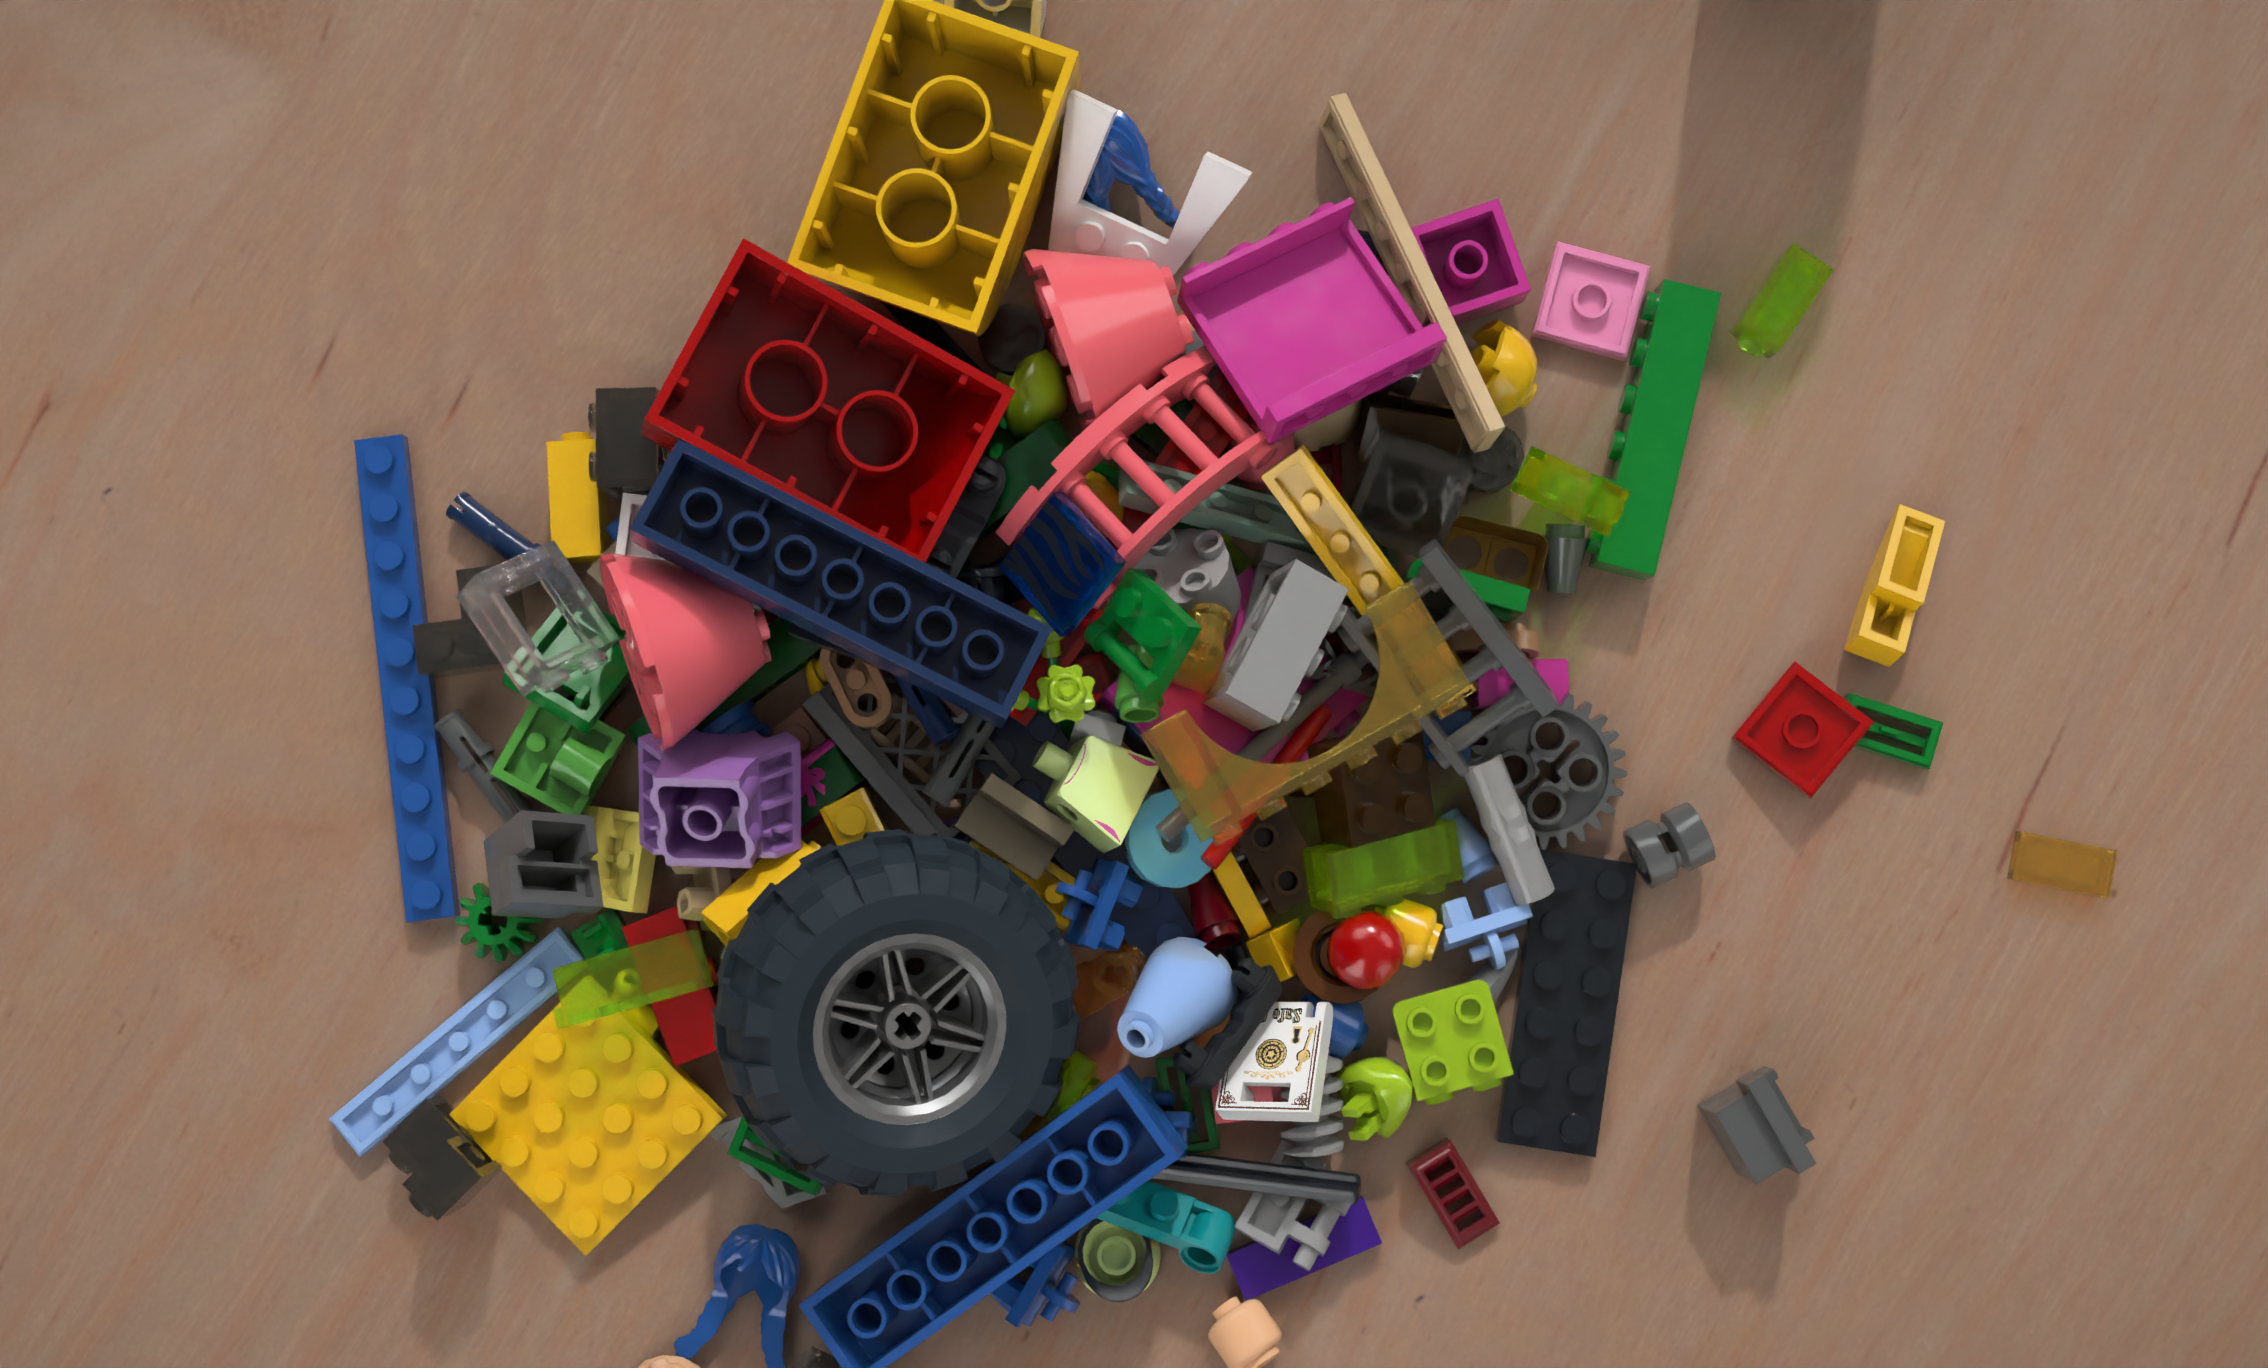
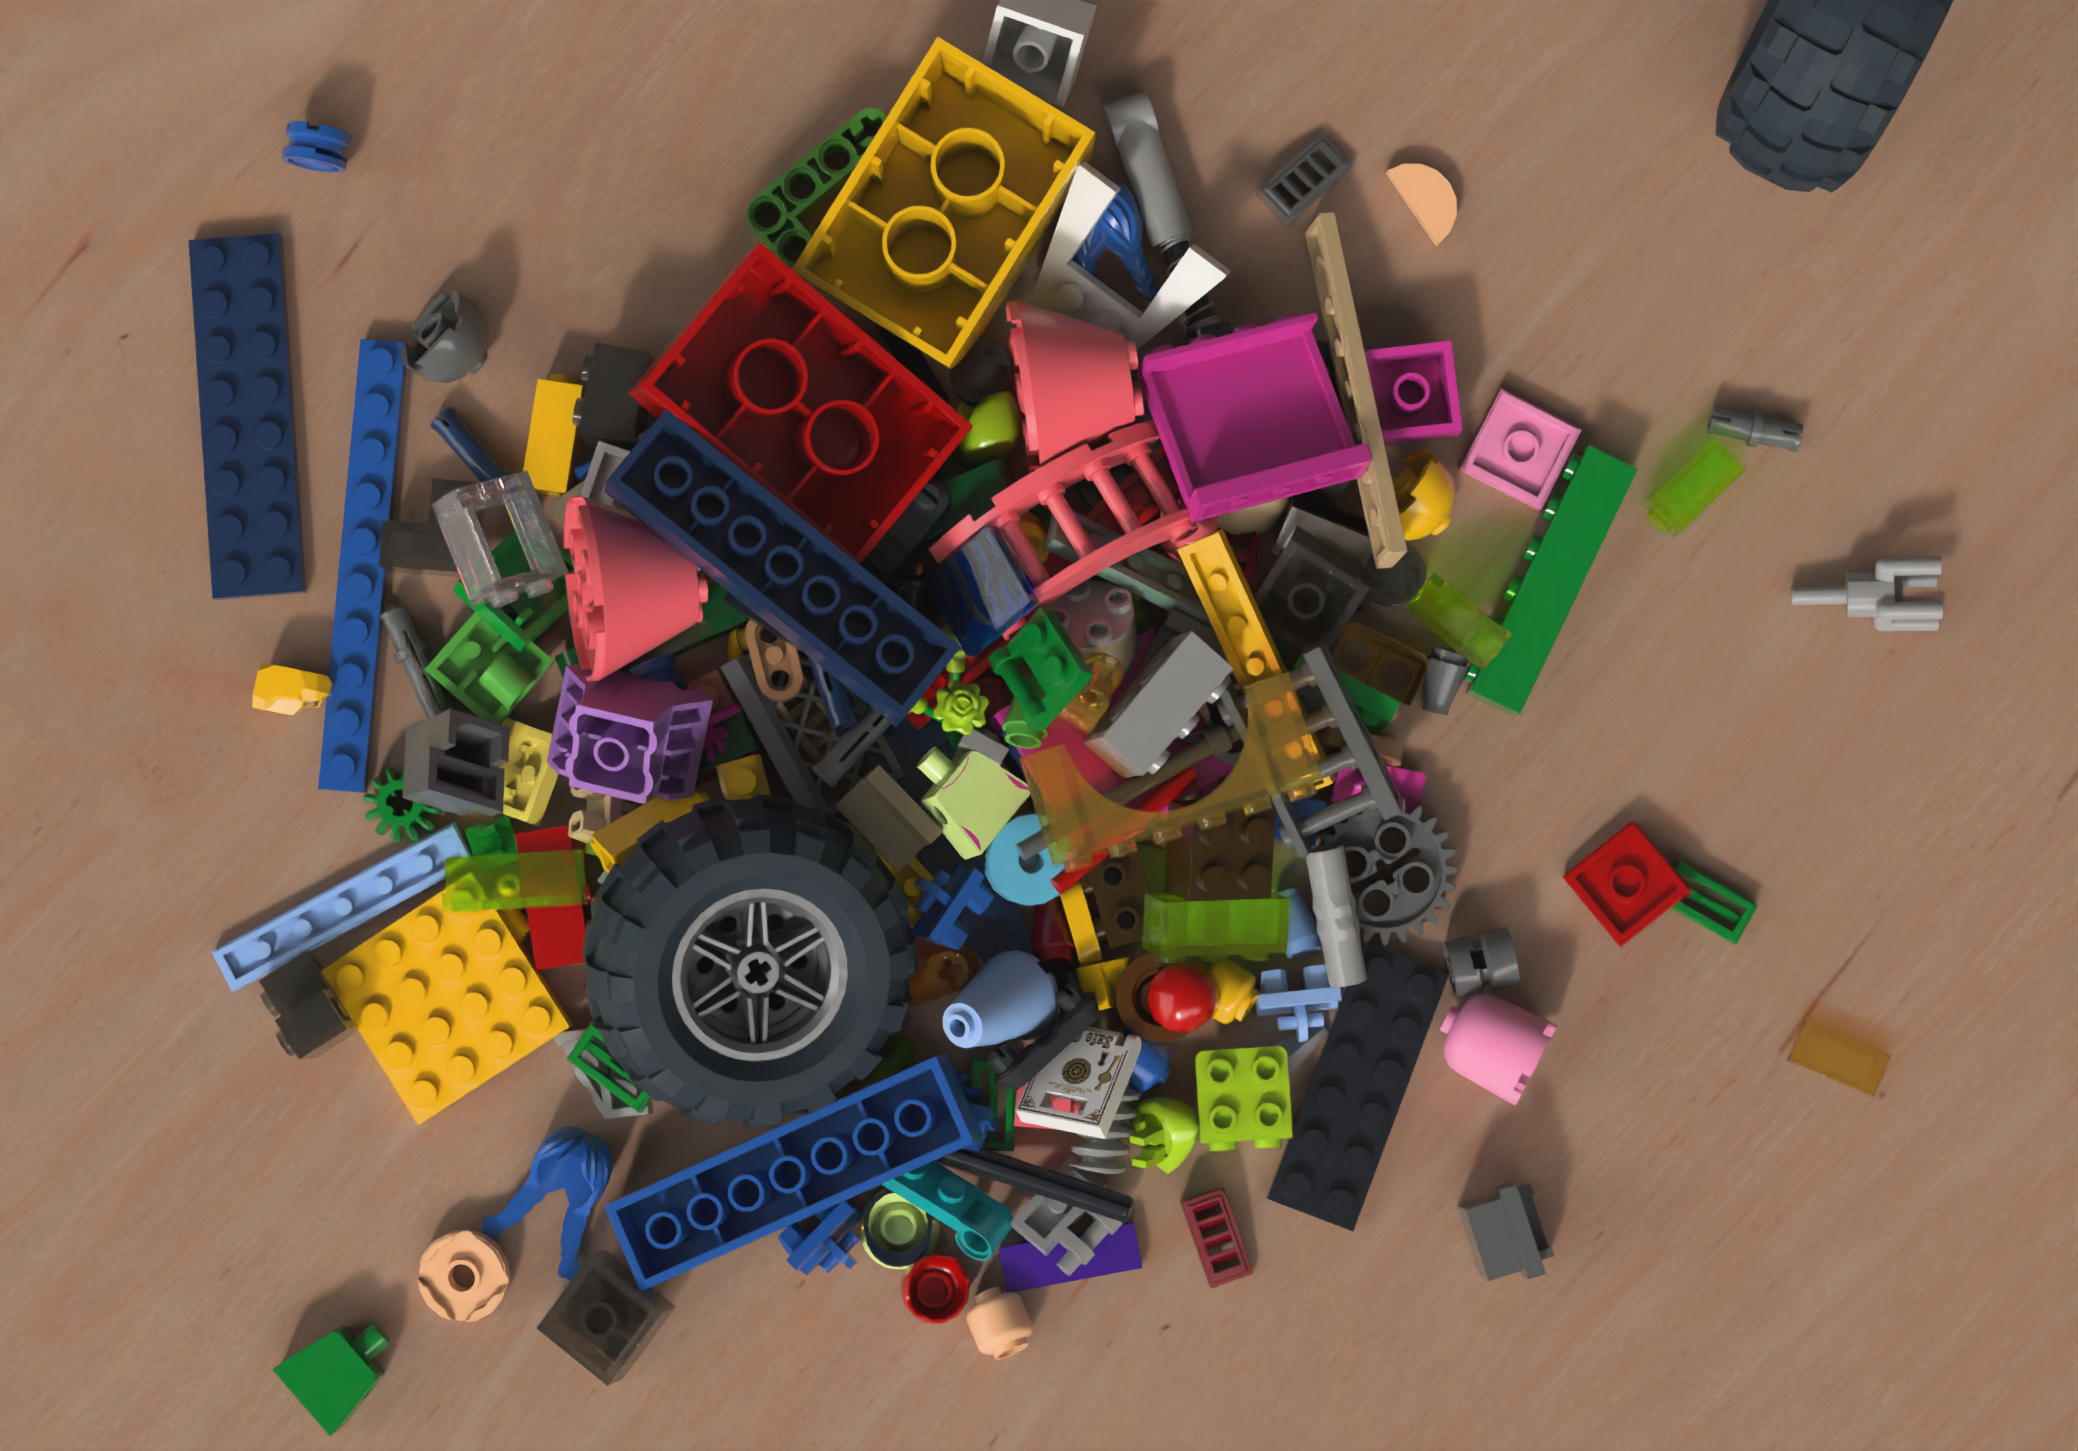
camera: 10 degrees right, 0 degrees up
(252, 547) = (247, 416): none -> dark blue plate
(264, 249) = (316, 147): none -> blue wheel
(352, 824) = (289, 689): none -> yellow rock
(446, 422) = (448, 340): none -> dark grey cylinder
(791, 164) = (813, 169): none -> bright green beam
(1120, 57) = (1159, 201): none -> light grey piece
(1169, 1313) = (935, 1288): none -> red hair
(1285, 99) = (1279, 205): none -> dark grey slope
(1437, 59) = (1428, 197): none -> light nougat tile
(1706, 928) = (1495, 1044): none -> bright pink cylinder
(1830, 227) = (1754, 428): none -> dark grey pin
(1895, 586) = (1741, 770): yellow slope -> none
(2002, 370) = (1881, 594): none -> light grey plant

